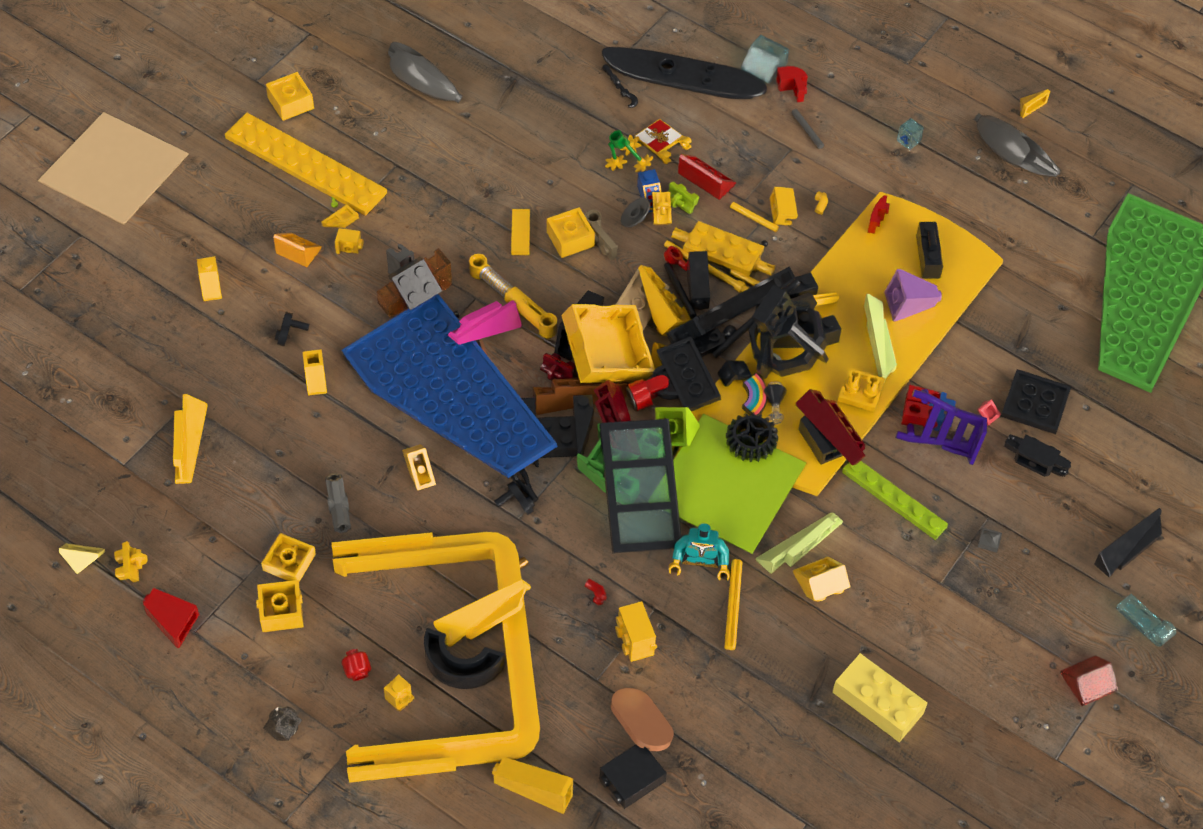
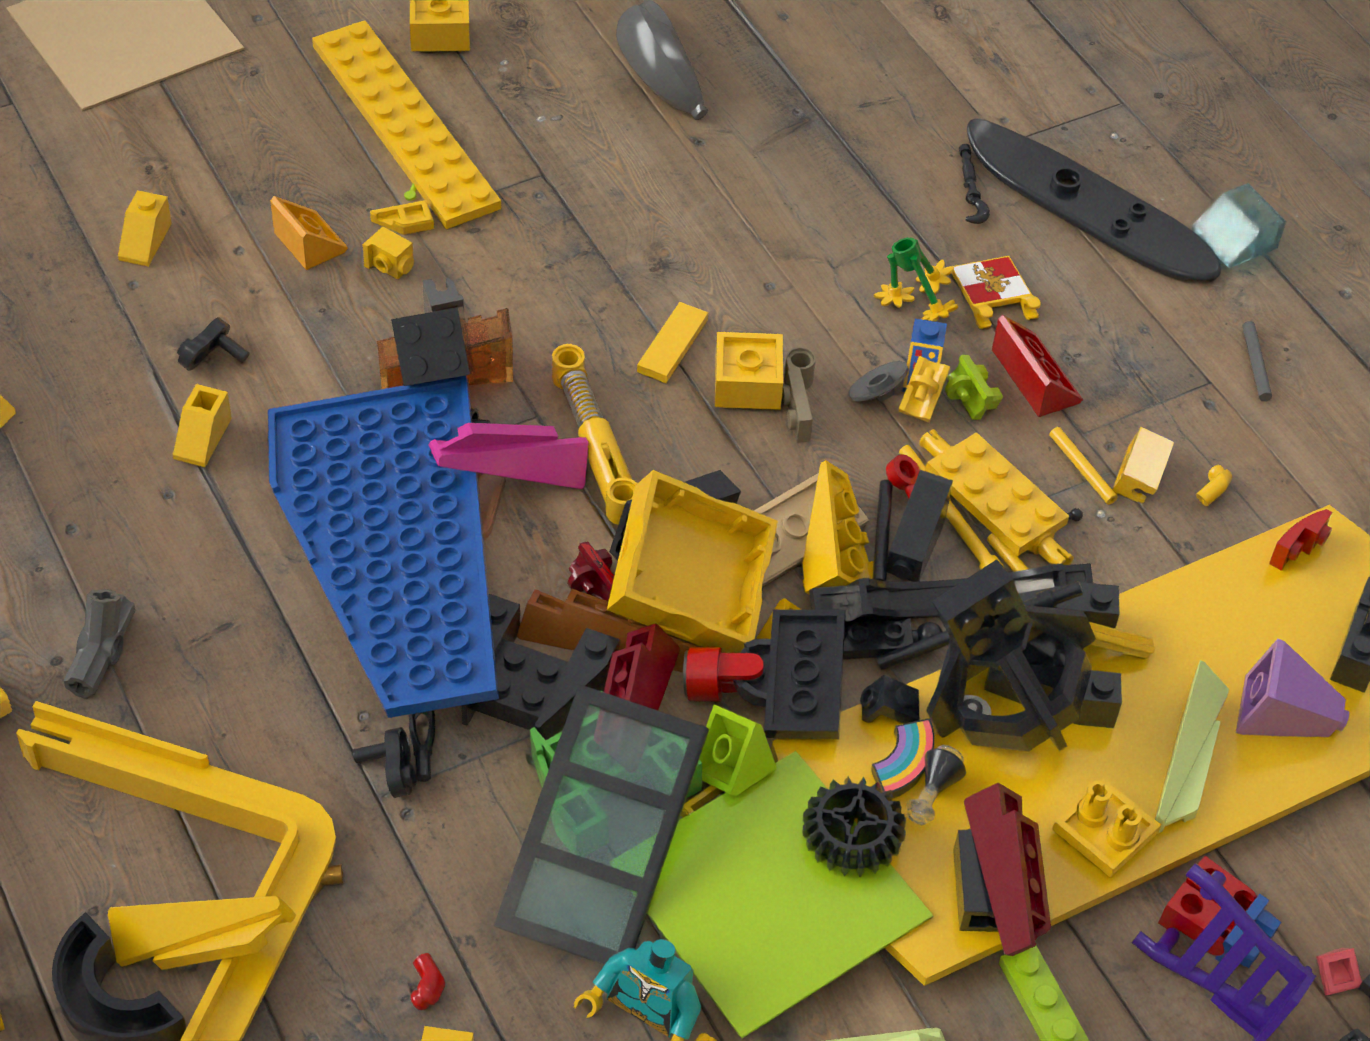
camera: 25 degrees right, 5 degrees down
(419, 466) = (266, 641): yellow slope -> none
(792, 79) = (1270, 273): red brick -> none

